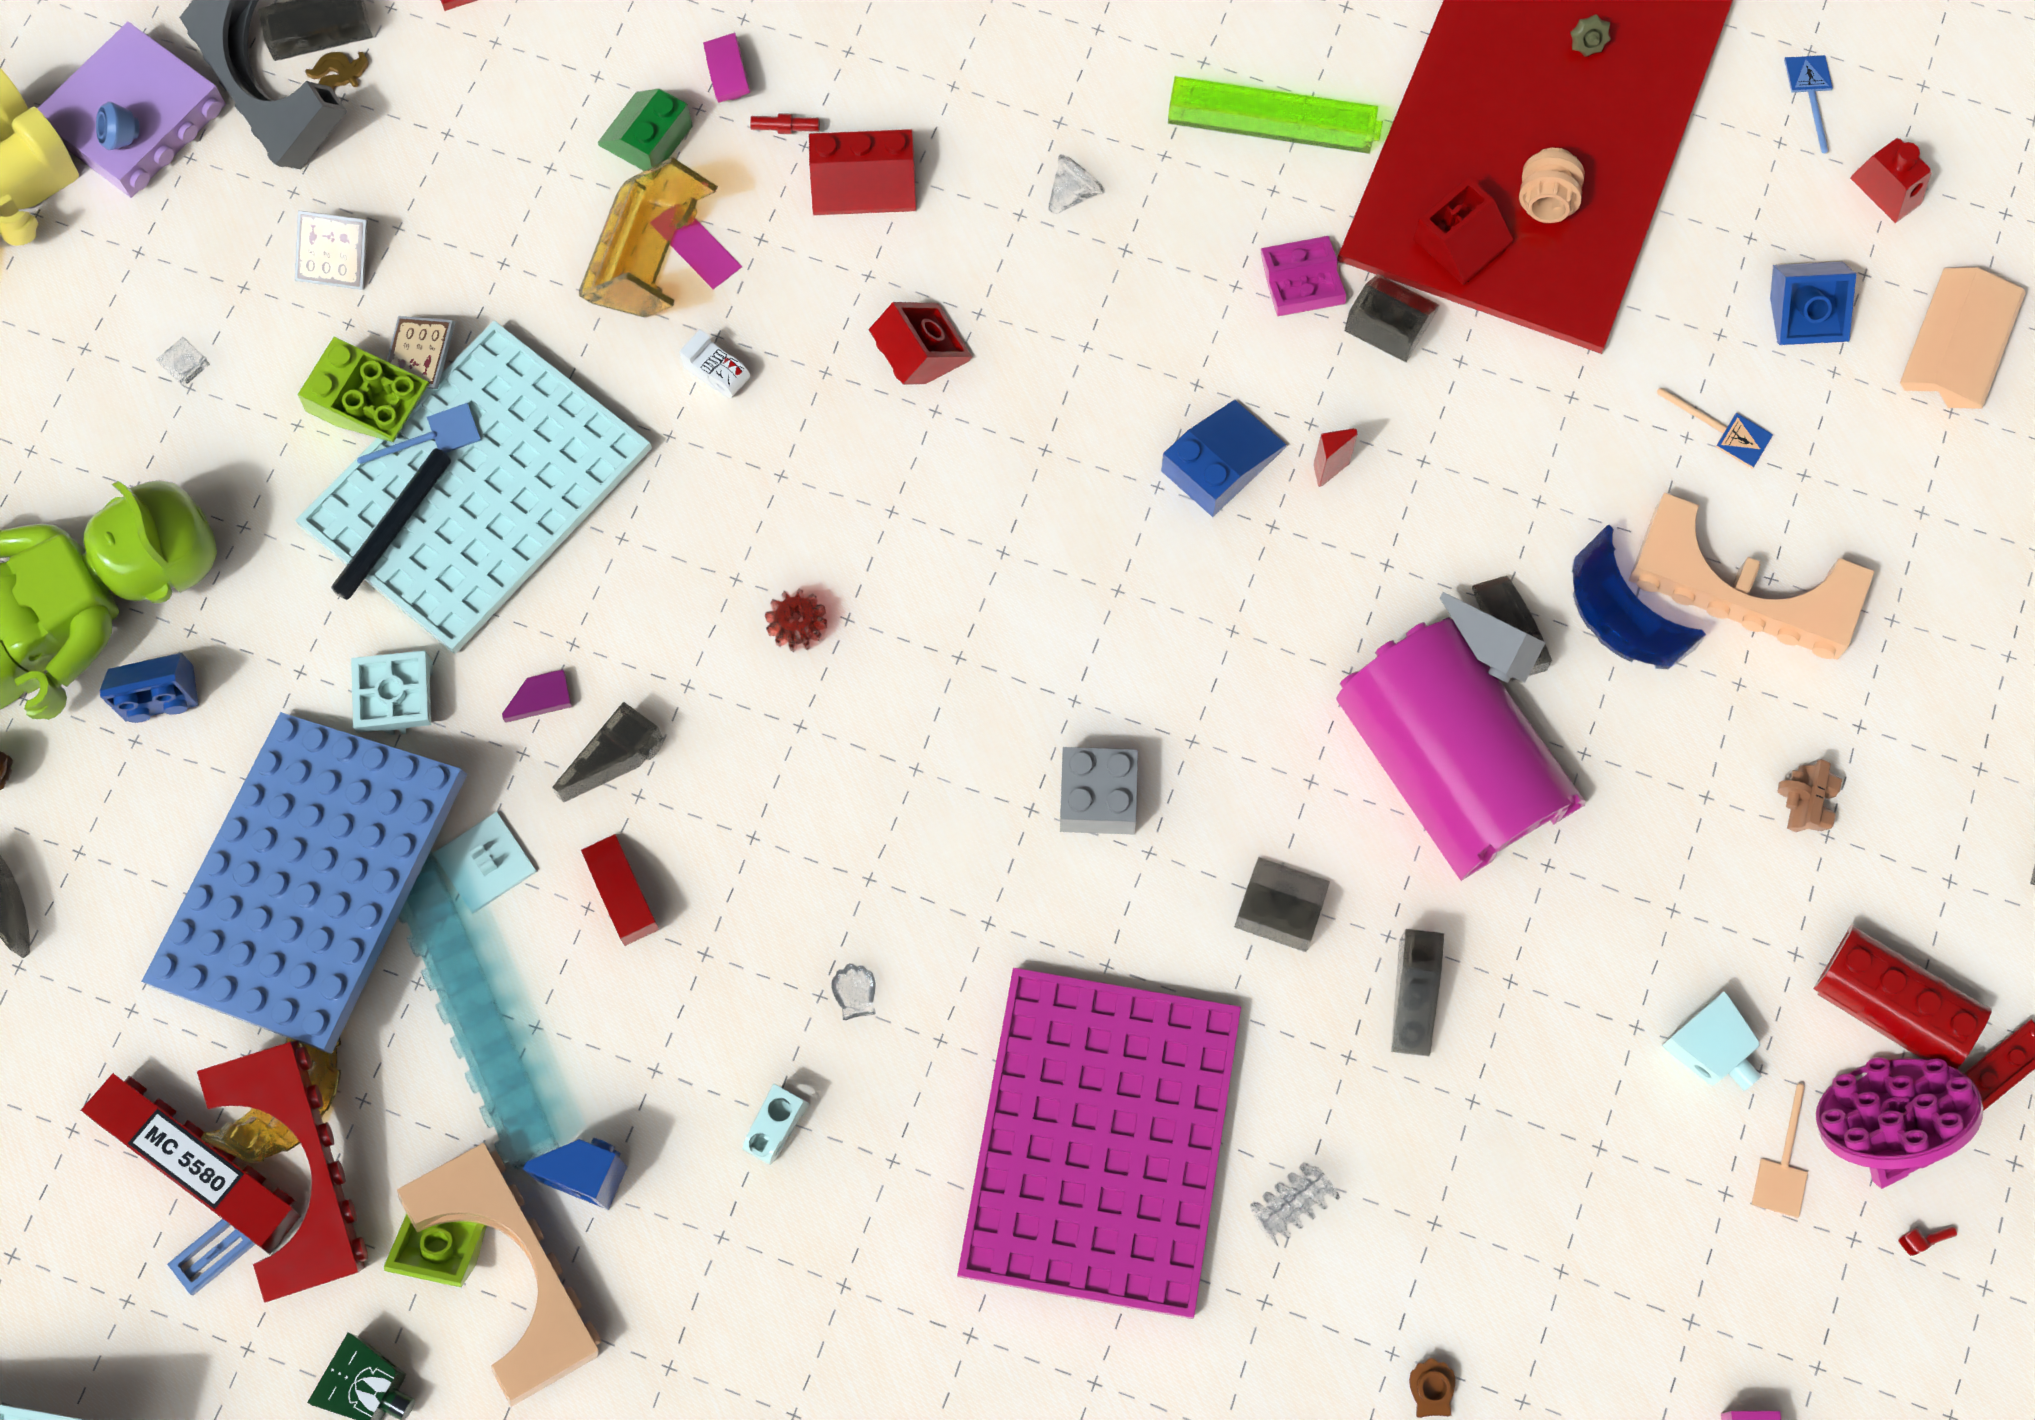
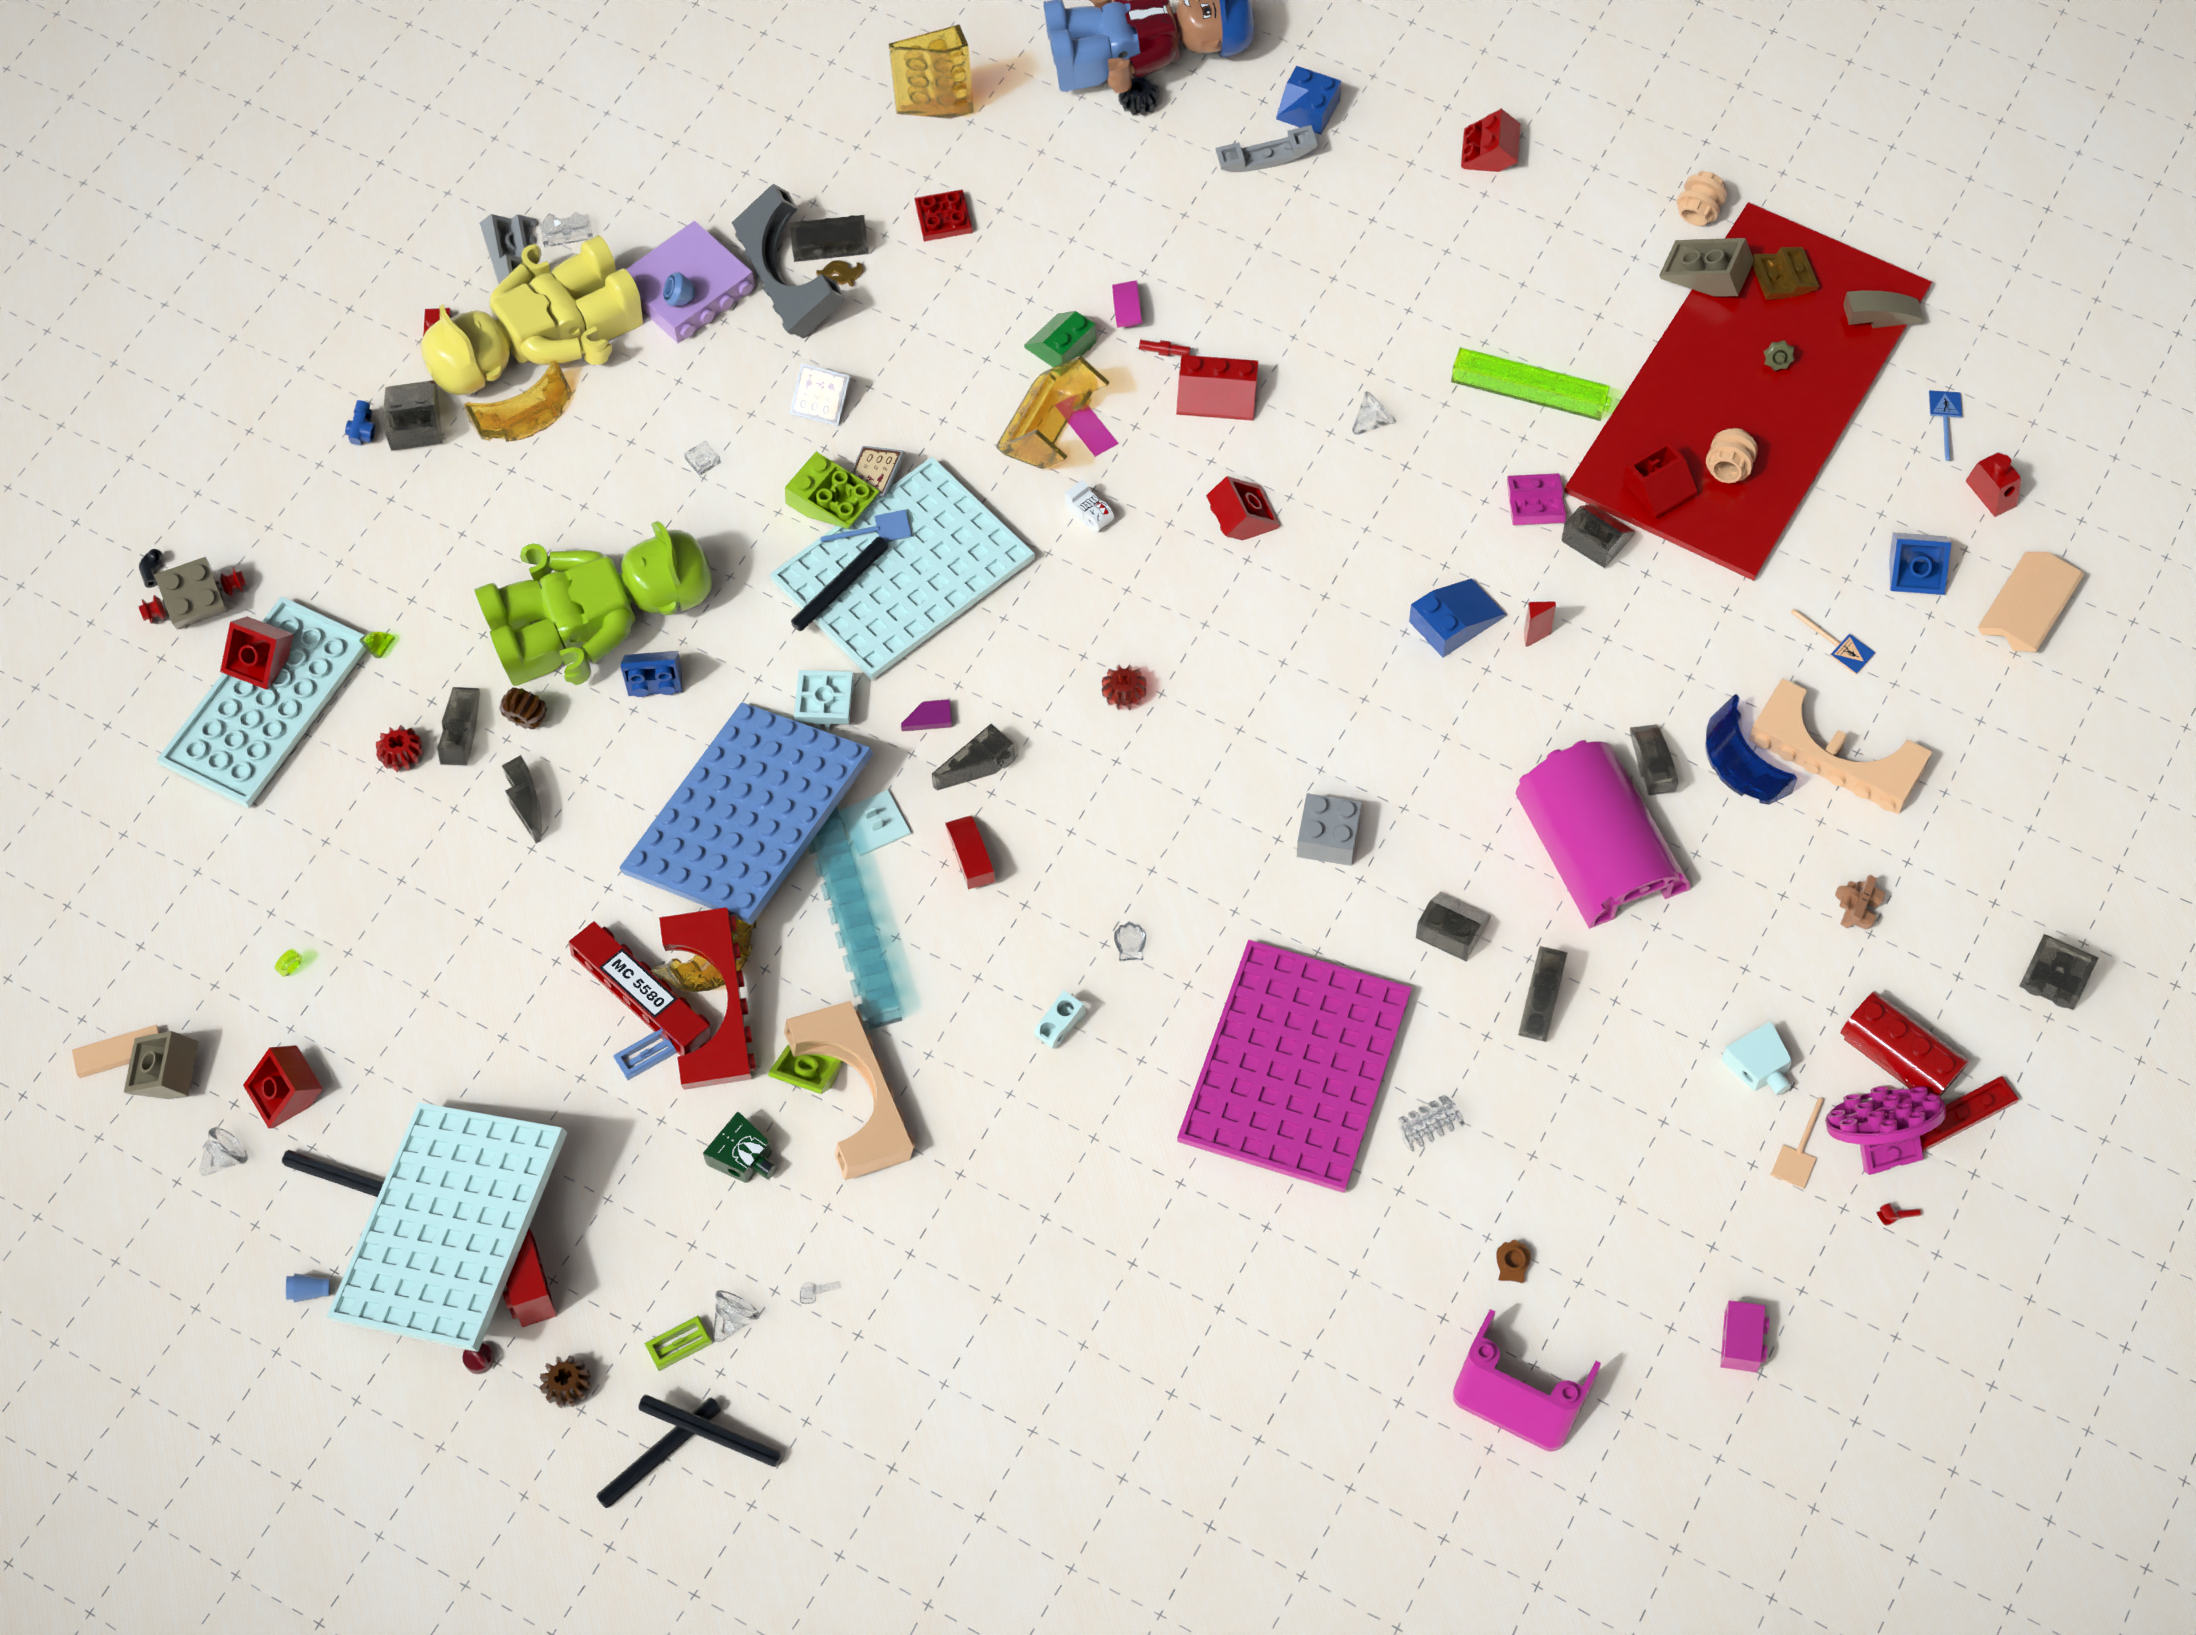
camera: 10 degrees right, 10 degrees down
(581, 1170) = (915, 1029): blue slope -> none
(1494, 641) = (1639, 762): light grey slope -> none

